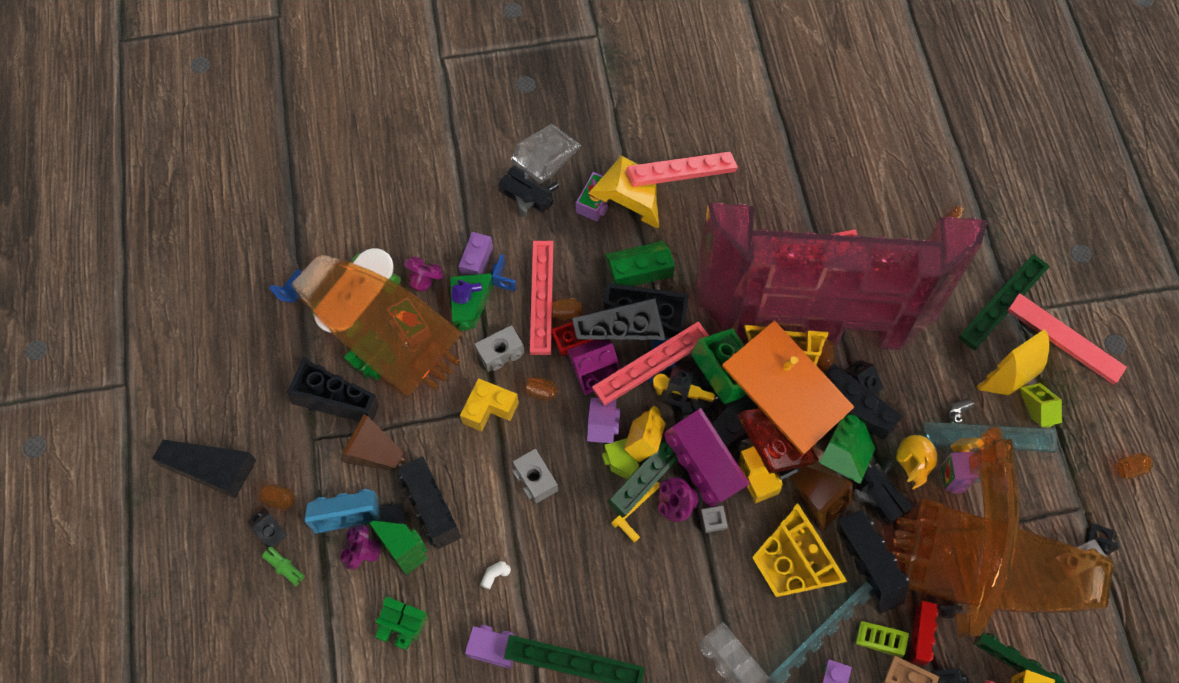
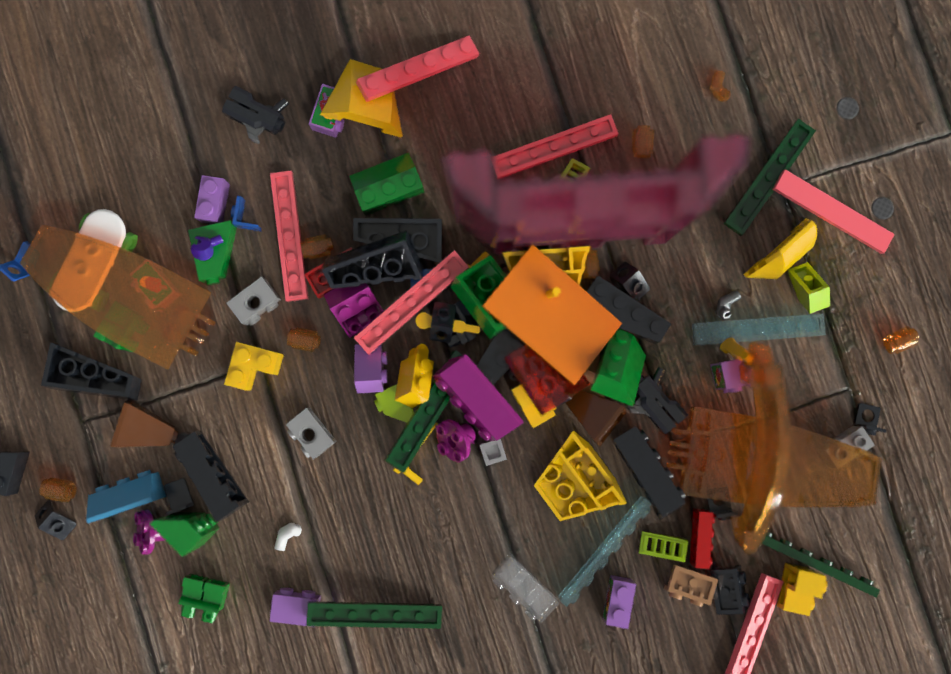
camera: 10 degrees left, 20 degrees up
(283, 566) = (79, 557): bright green pin -> none
(422, 273) = (158, 226): magenta plate -> none
(544, 152) = (267, 63): clear slope -> none
(917, 457) = (689, 363): yellow helmet -> none

